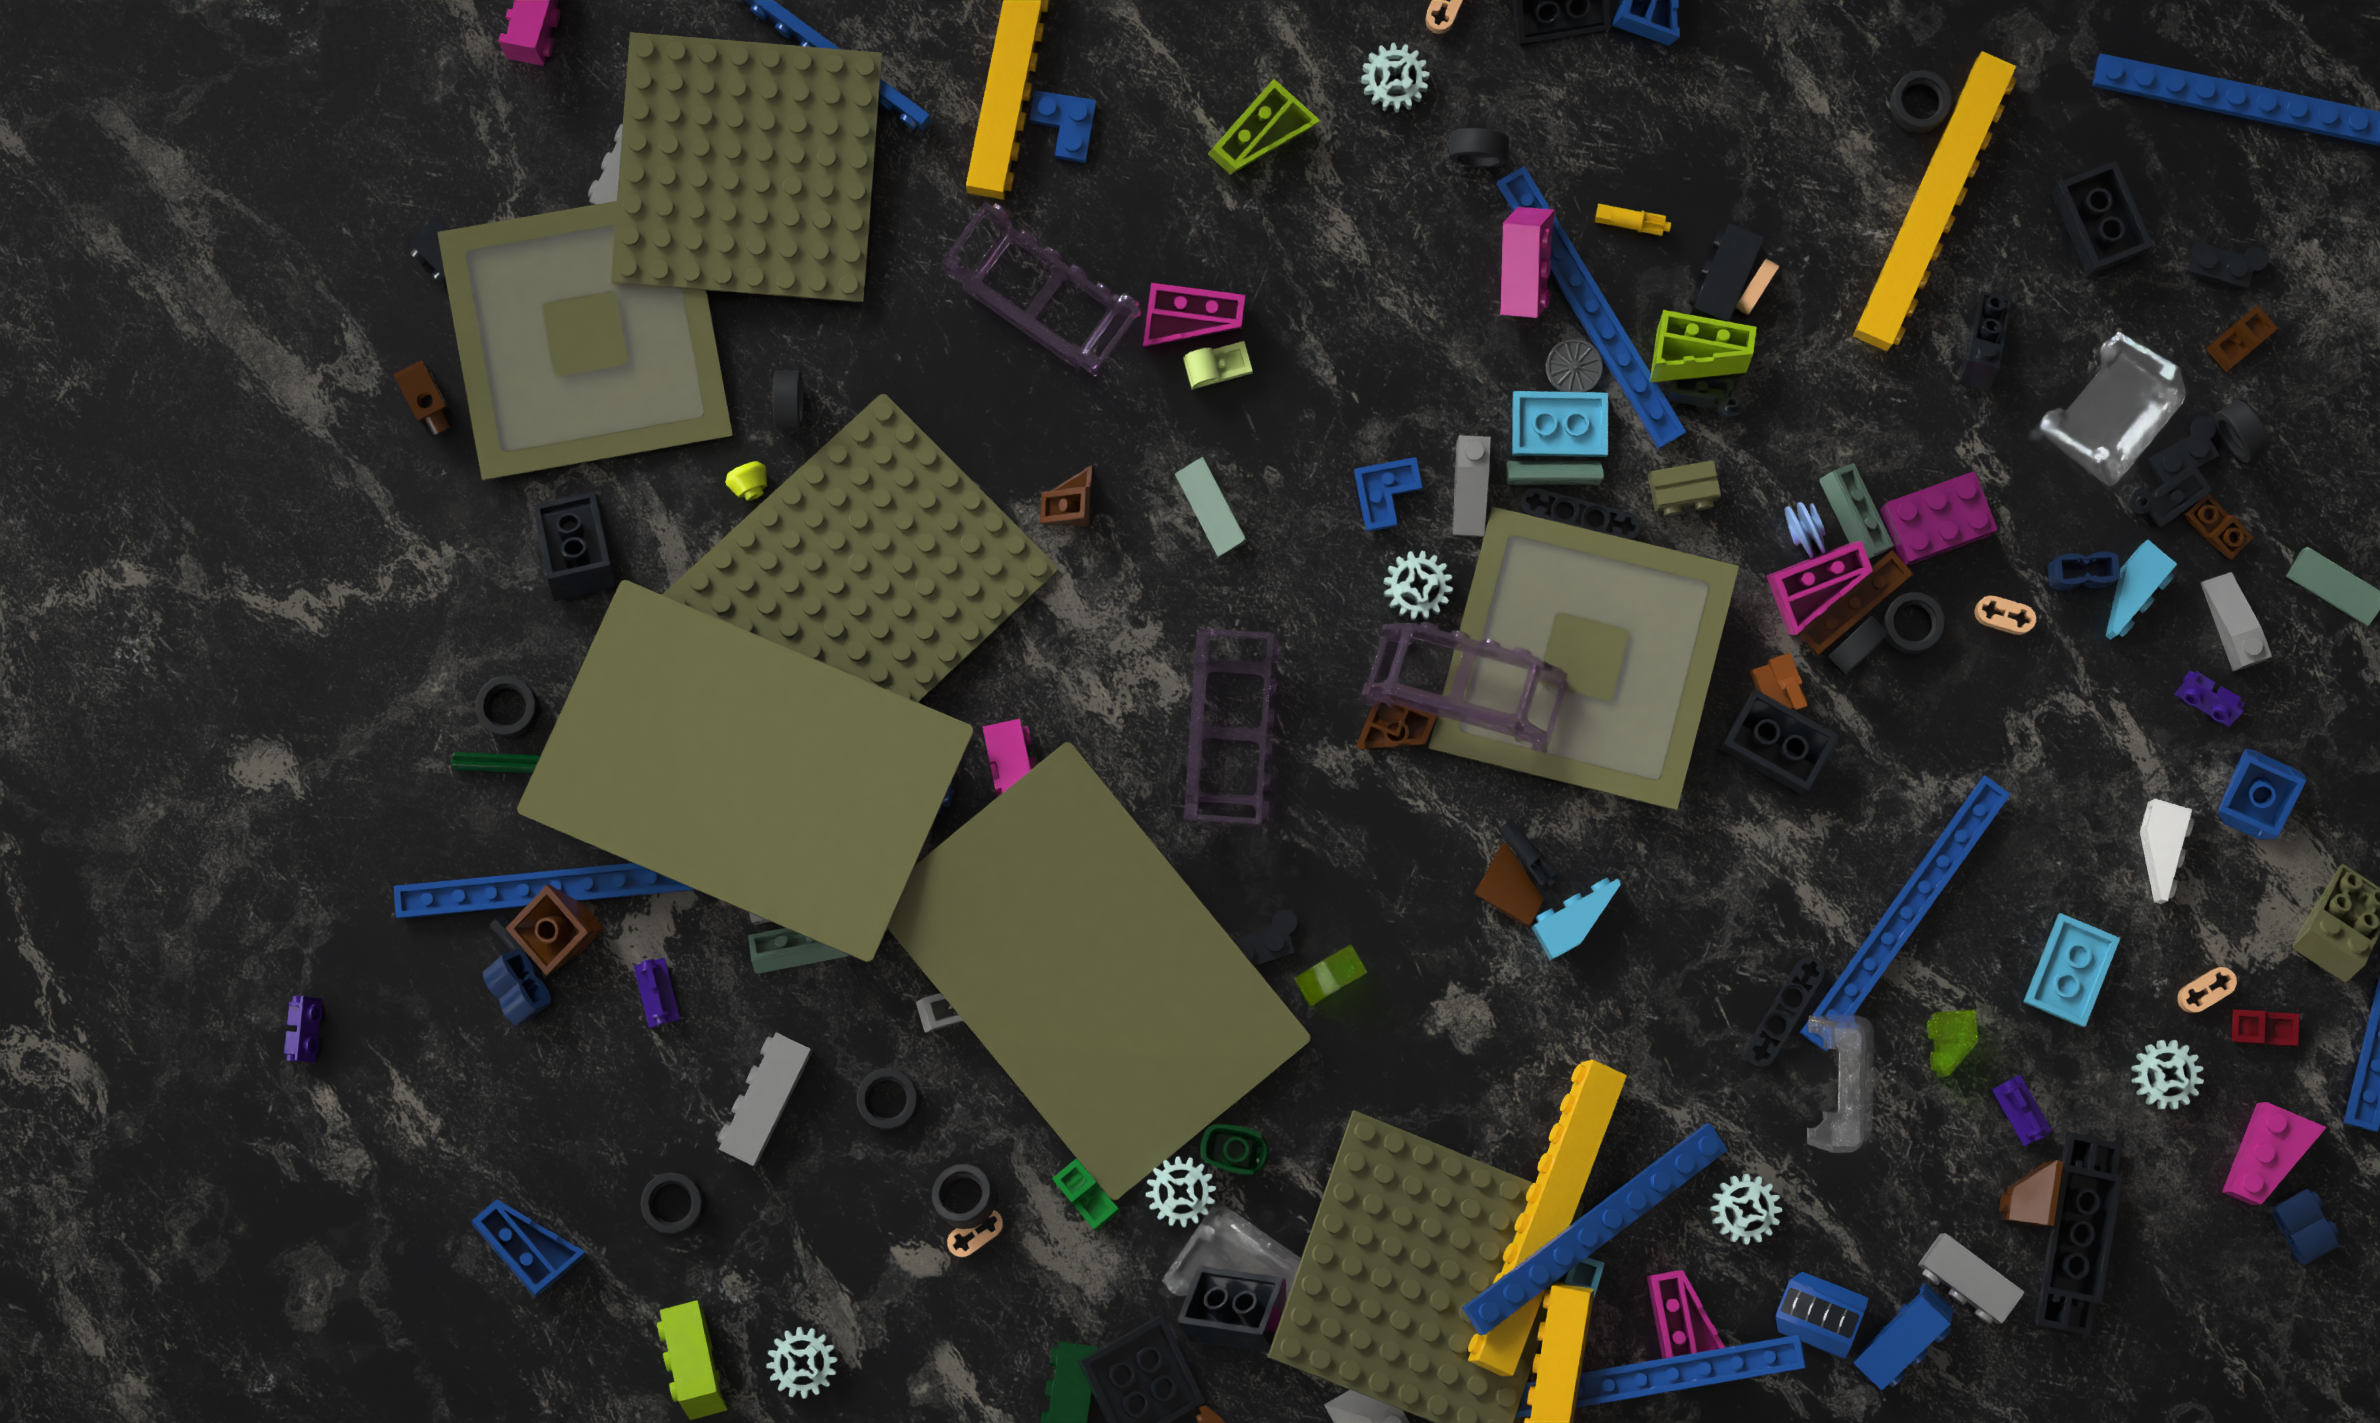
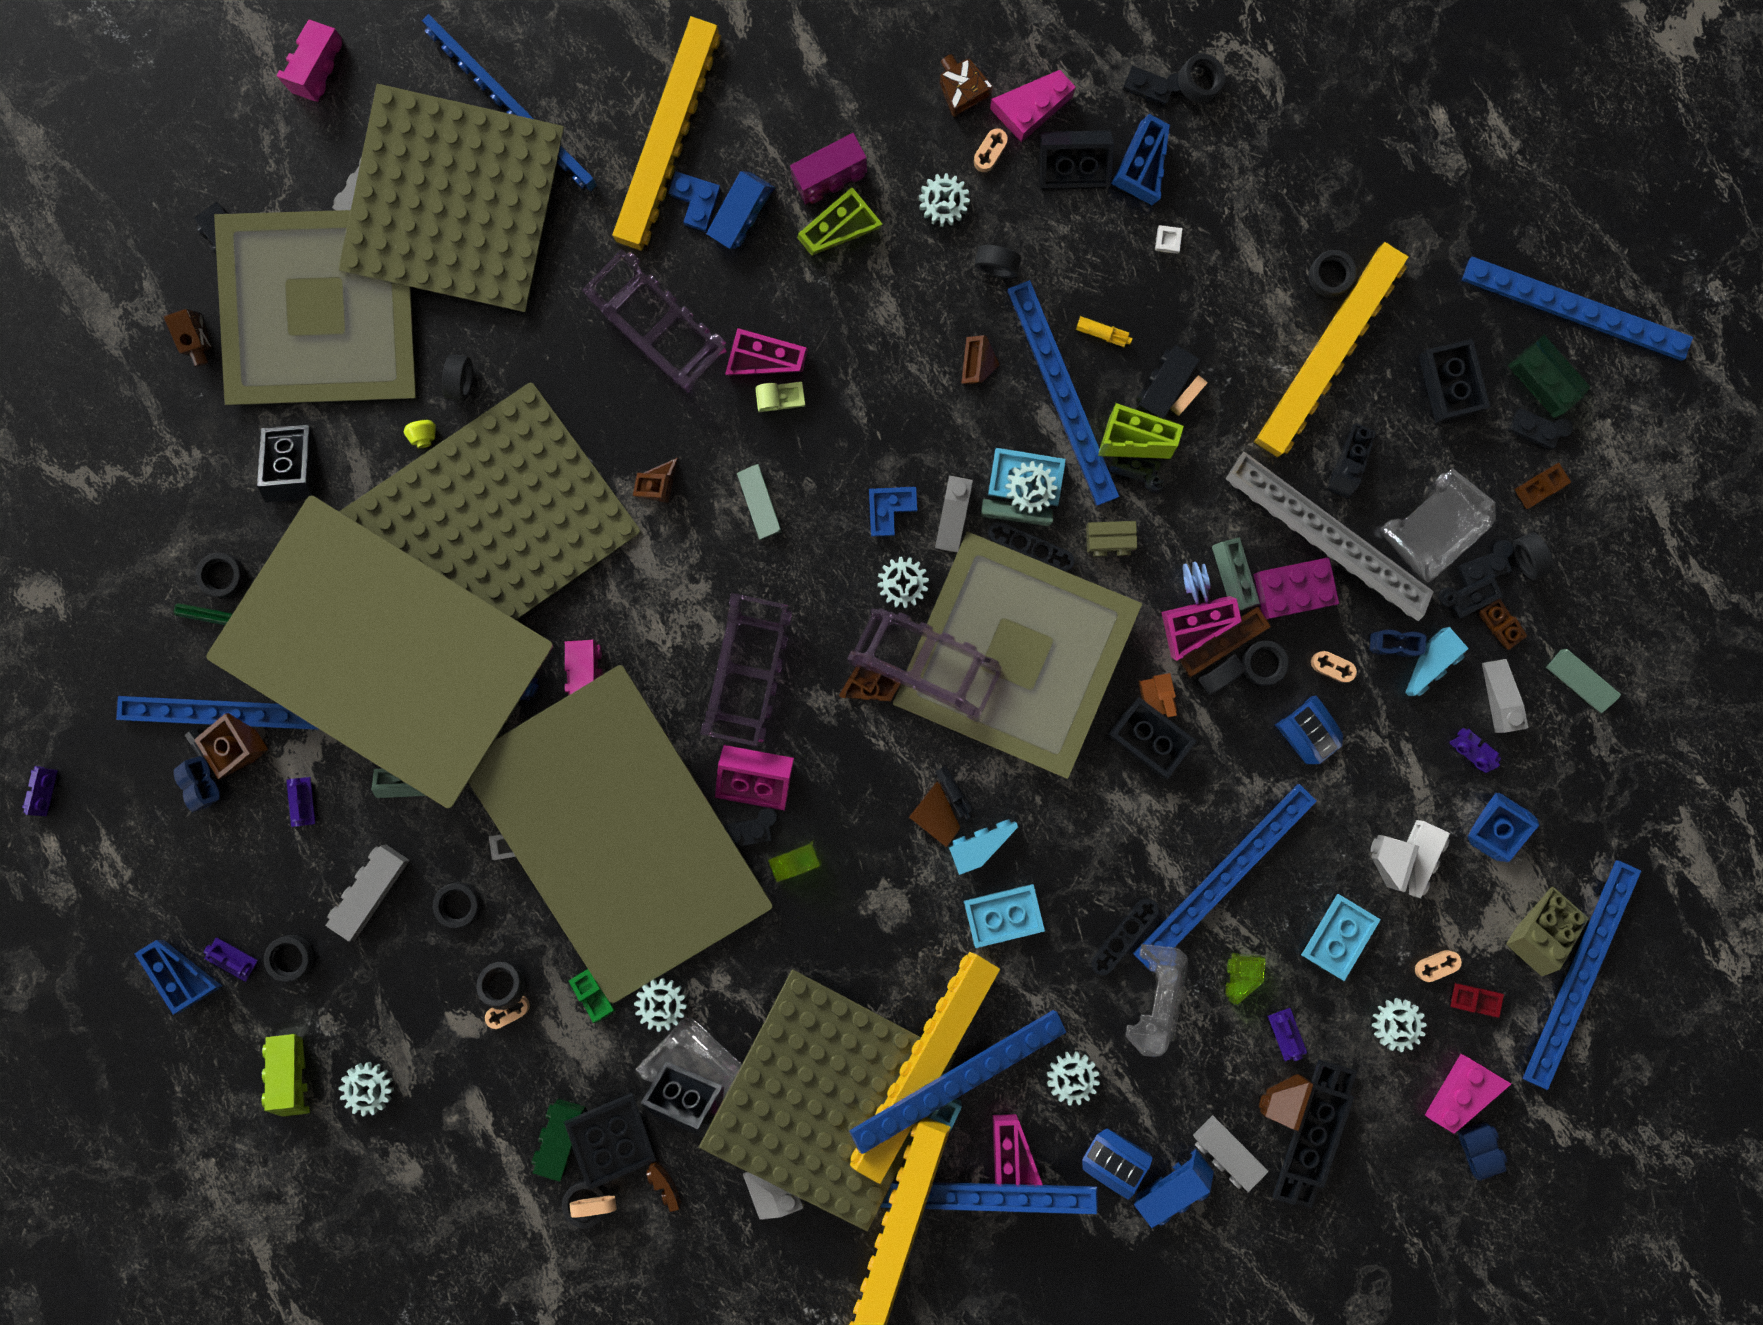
camera: 10 degrees right, 5 degrees up
(592, 1217) = (230, 959): none -> dark purple hinge
(1129, 129) = (740, 209): none -> blue wedge
(1234, 1149) = (704, 981): dark green piece -> none
(1239, 59) = (829, 169): none -> magenta brick
(1259, 872) = (753, 777): none -> dark pink slope
(1472, 280) = (978, 360): none -> reddish brown slope
(1526, 261) = (1019, 352): dark pink wedge -> none
(1556, 433) = (1021, 482): none -> light aqua gear
(1574, 366) = (1043, 435): dark grey wheel -> none
(1620, 1007) = (1004, 916): none -> medium azure plate
(1698, 87) = (1168, 239): none -> white plate
(1972, 443) = (1330, 536): none -> light grey plate
(1990, 704) = (1312, 731): none -> blue slope
(2124, 856) = (1394, 861): none -> slope
(2227, 194) = (1549, 377): none -> clear green slope

